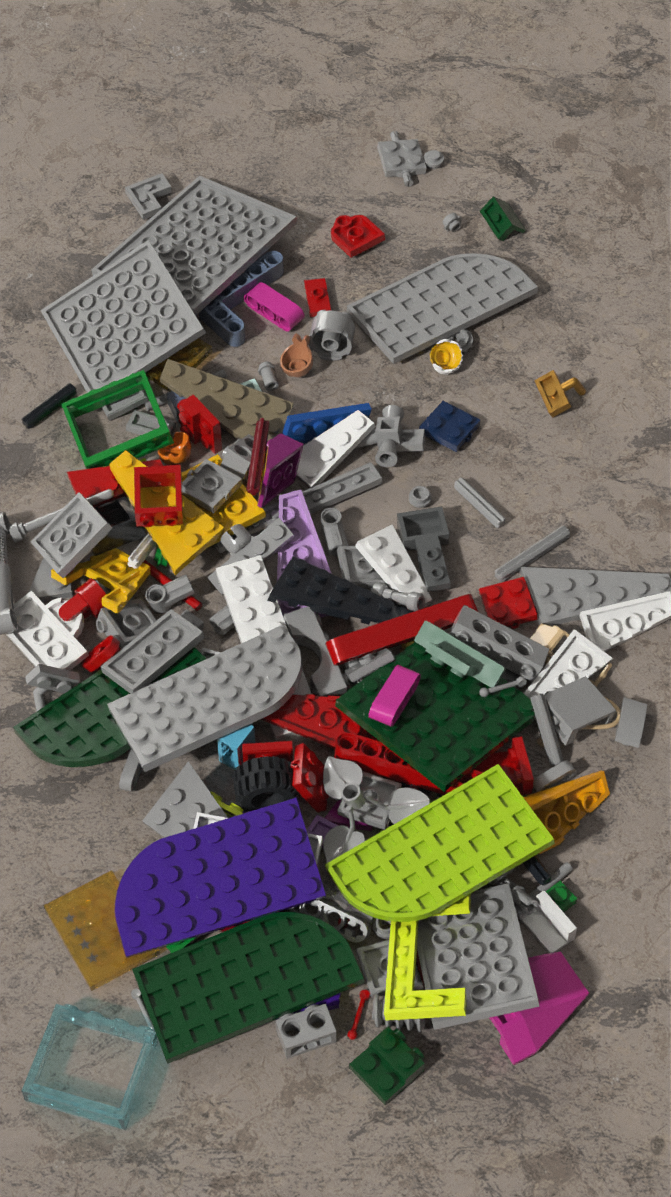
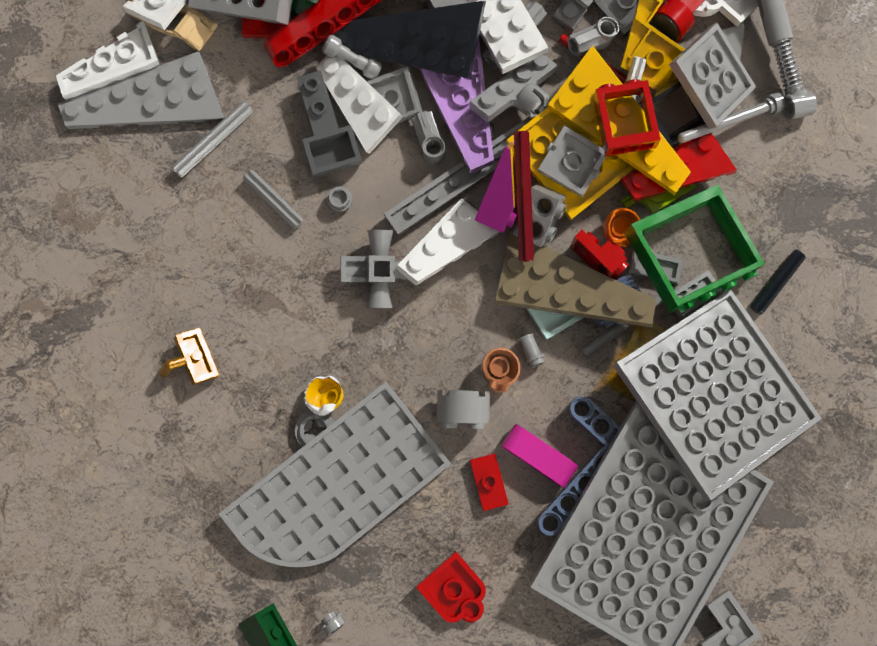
camera: 175 degrees right, 25 degrees up
(309, 425) = (477, 265): blue wing -> none
(450, 426) = (314, 301): dark blue plate -> none
(508, 602) = (236, 73): red plate -> none

